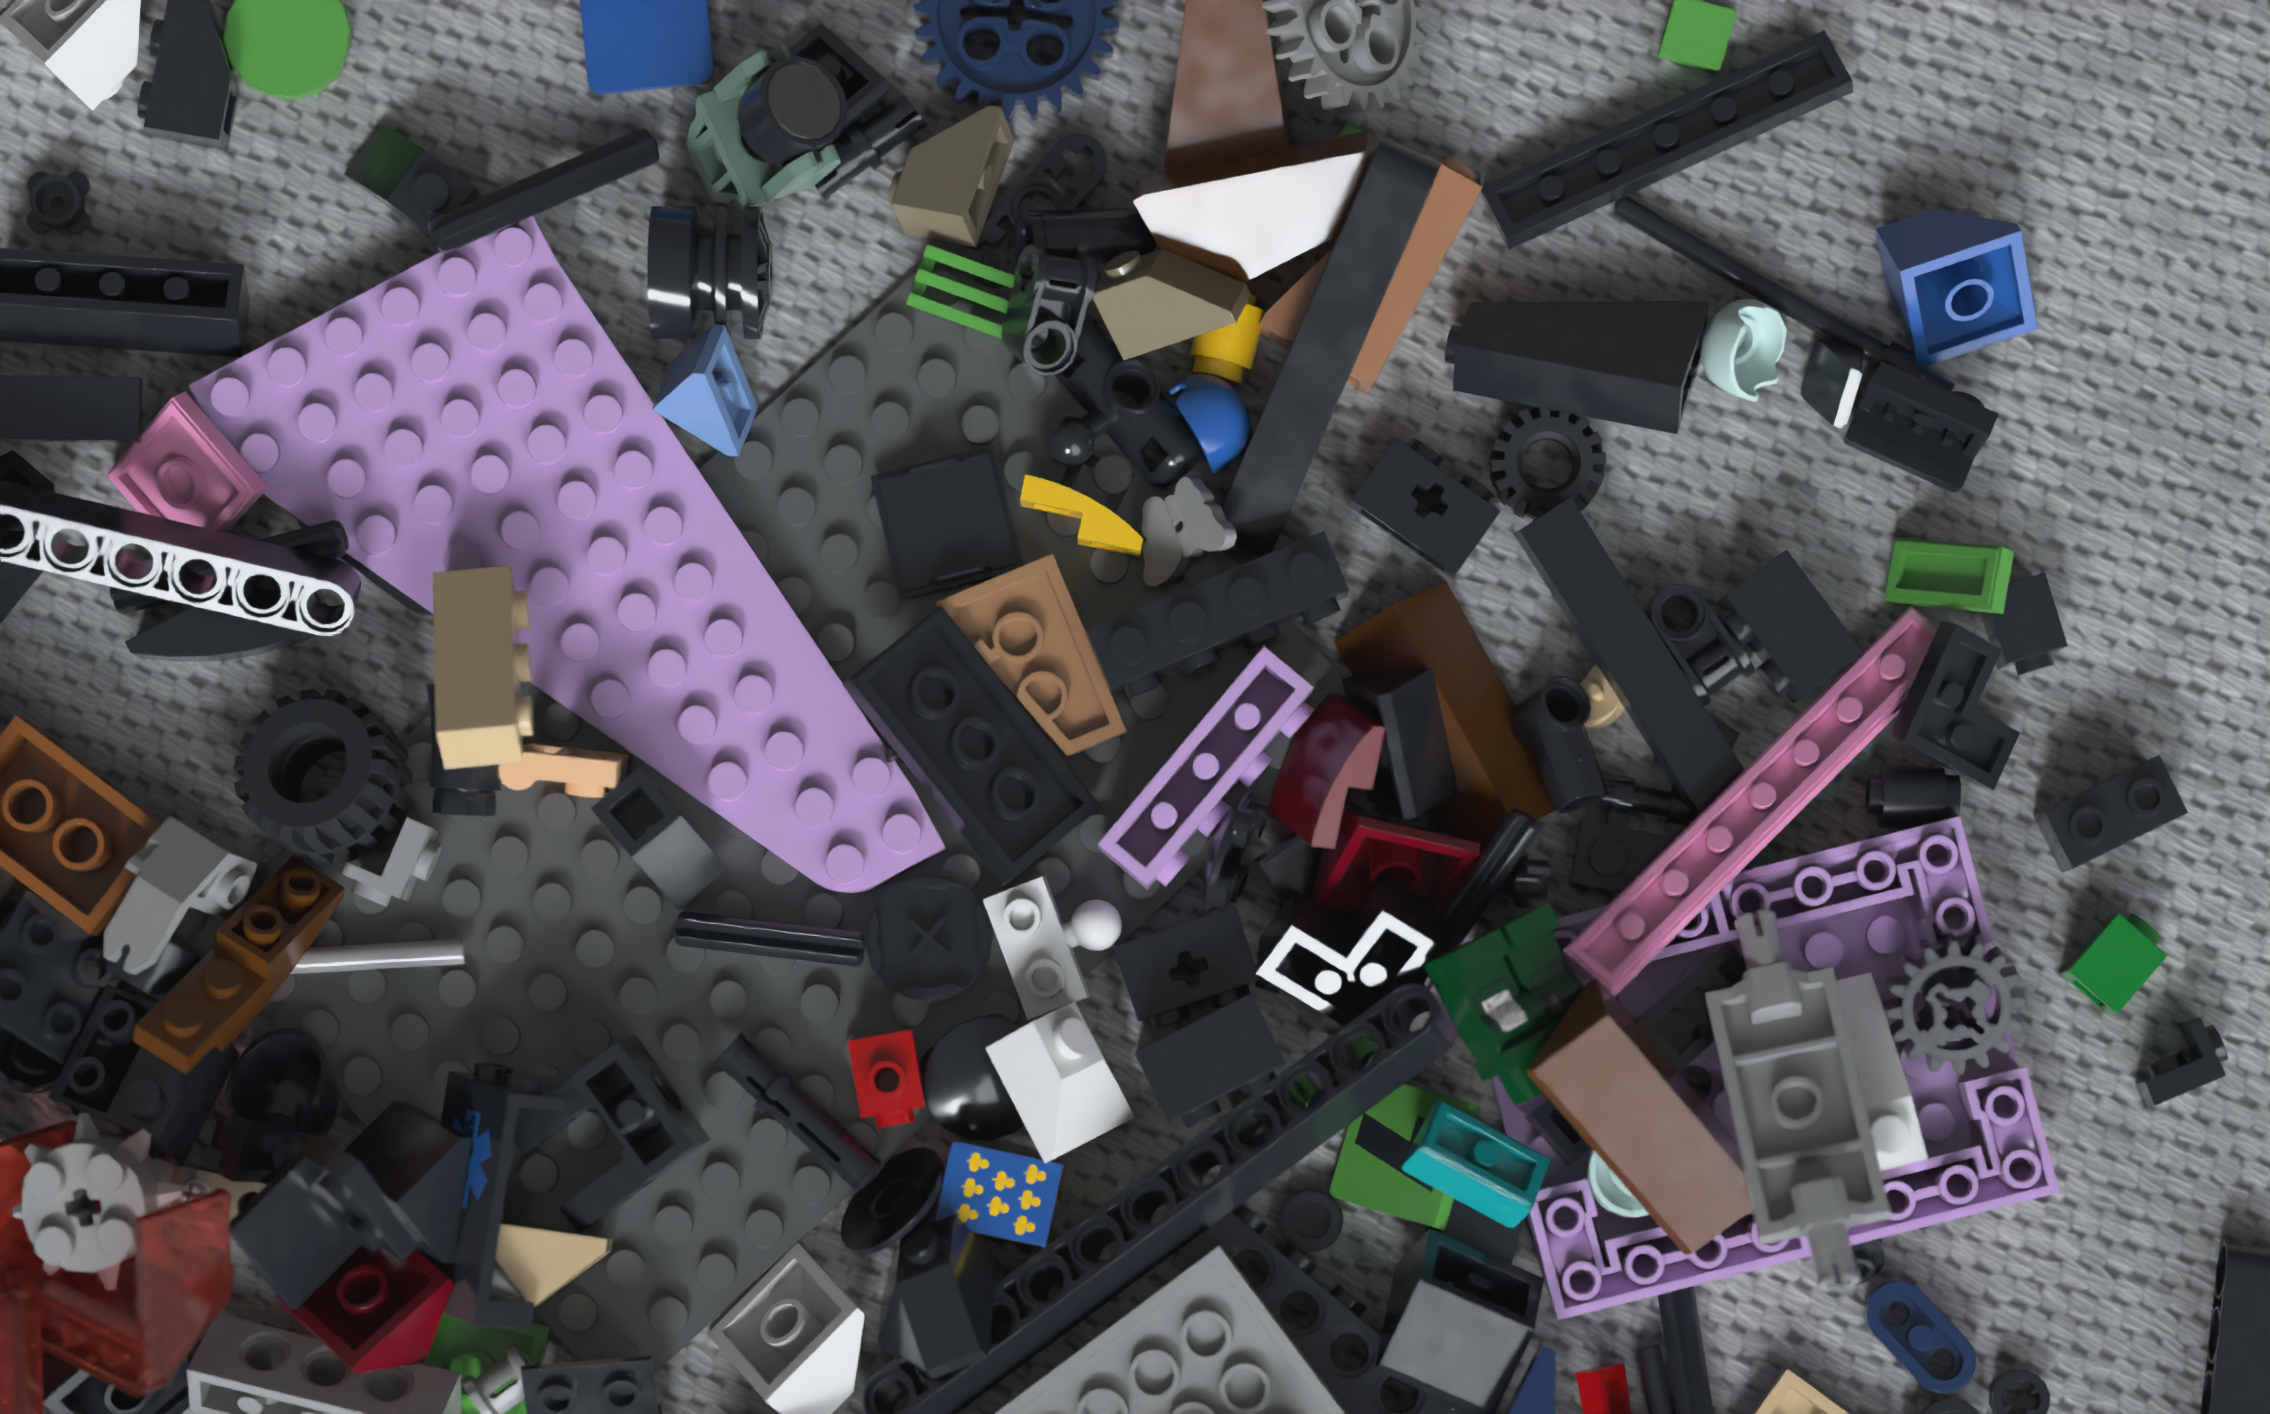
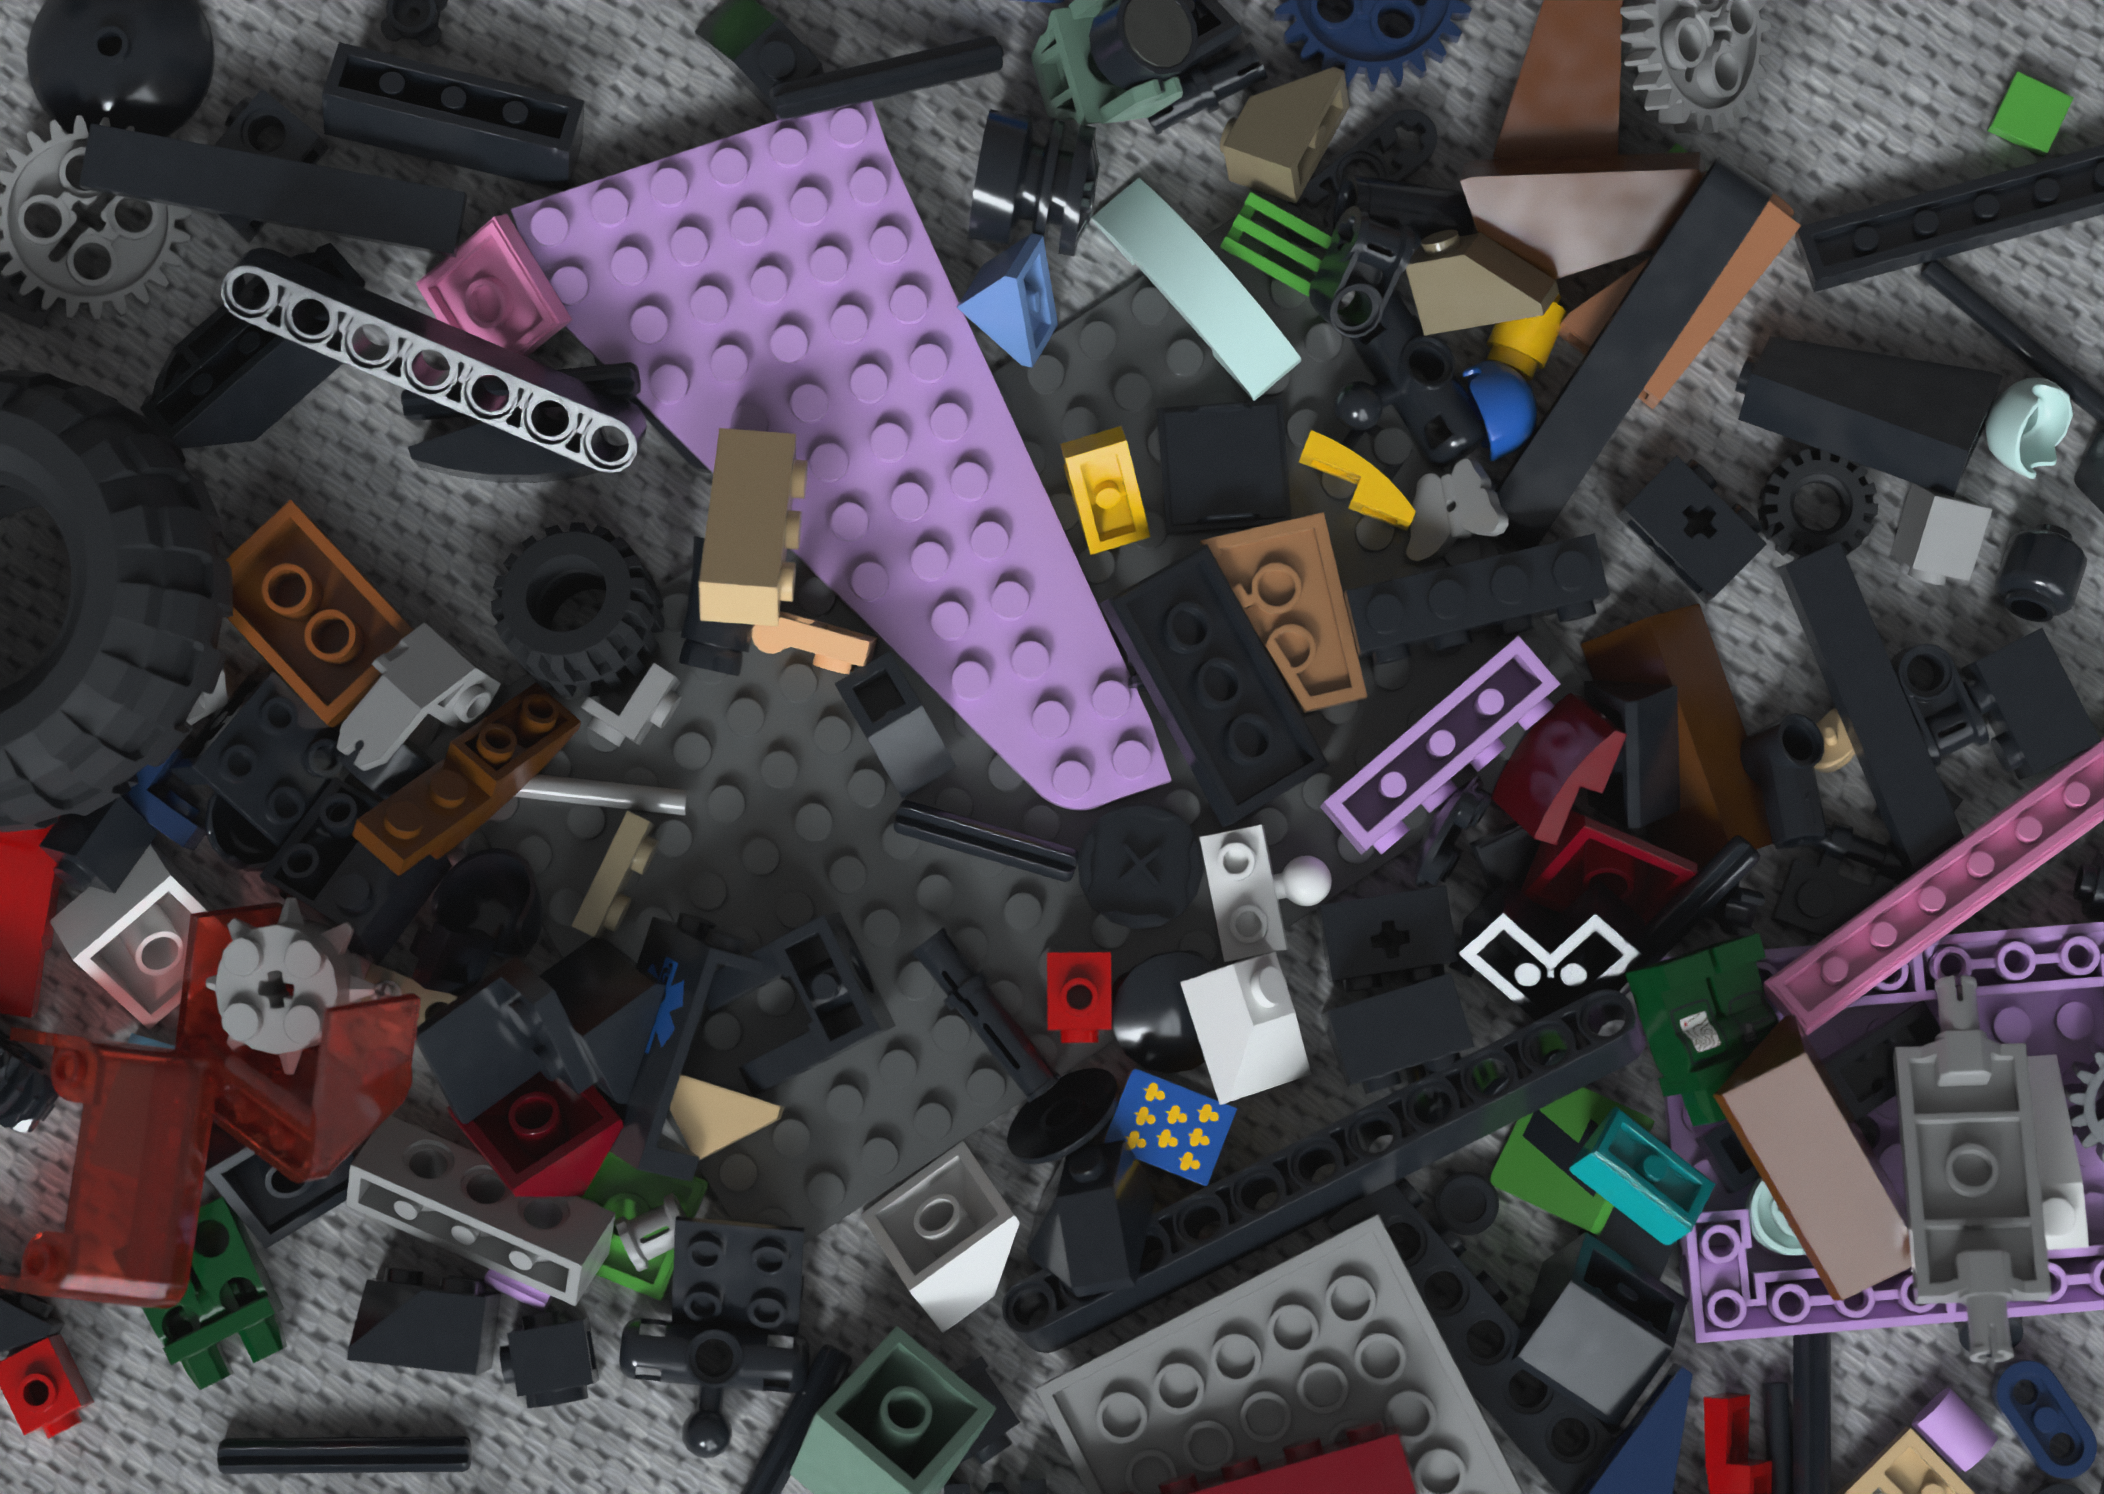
camera: 10 degrees right, 0 degrees up
(398, 1064) = (629, 852): none -> dark tan plate
(830, 568) = (1105, 490): none -> yellow slope
(891, 348) = (1198, 287): none -> light aqua slope
(1673, 473) = (1940, 535): none -> light grey brick
(1780, 493) = (2040, 573): none -> black head
(1832, 1363) = (1954, 1430): none -> lavender piece

